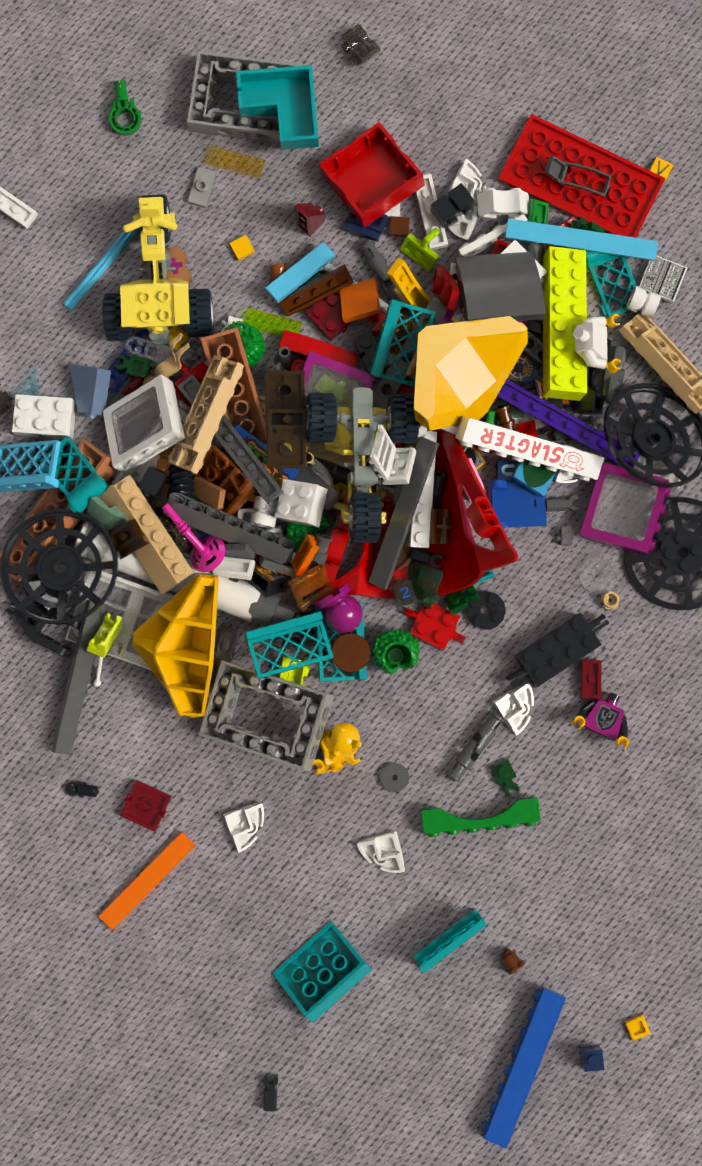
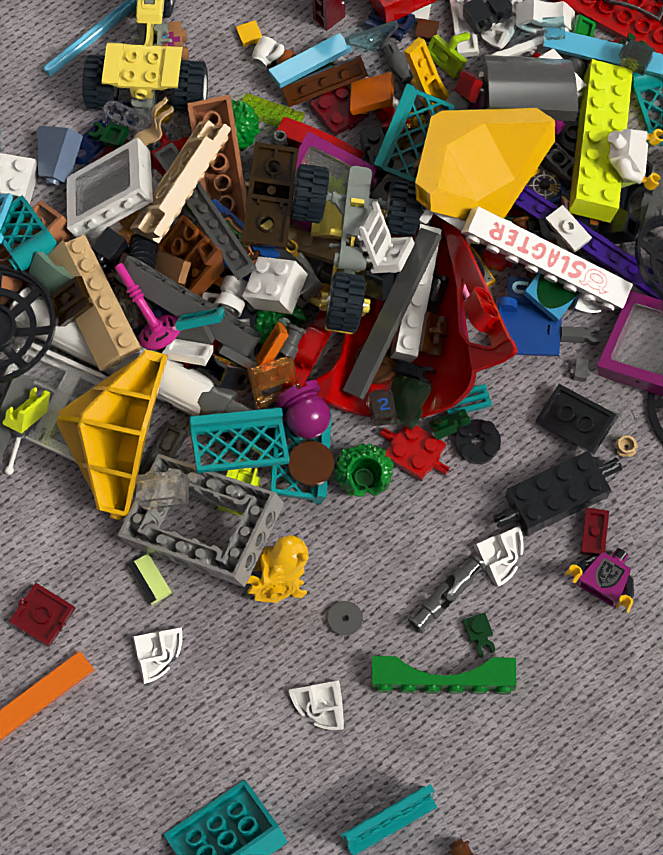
camera: 10 degrees right, 15 degrees down
(229, 763) = (150, 579): none -> yellowish green tile
(231, 696) = (162, 489): none -> clear brick
(241, 542) = (200, 318): none -> teal tile
(260, 266) = (266, 51): none -> white piece
(353, 243) = (373, 37): none -> clear light blue tile
(513, 220) = (553, 28): none -> clear light blue tile
(520, 421) = (541, 229): none -> black piece
(545, 415) = (568, 229): none -> white plate
(567, 583) = (576, 419): none -> black plate
(588, 241) = (636, 56): none -> clear smoke brick

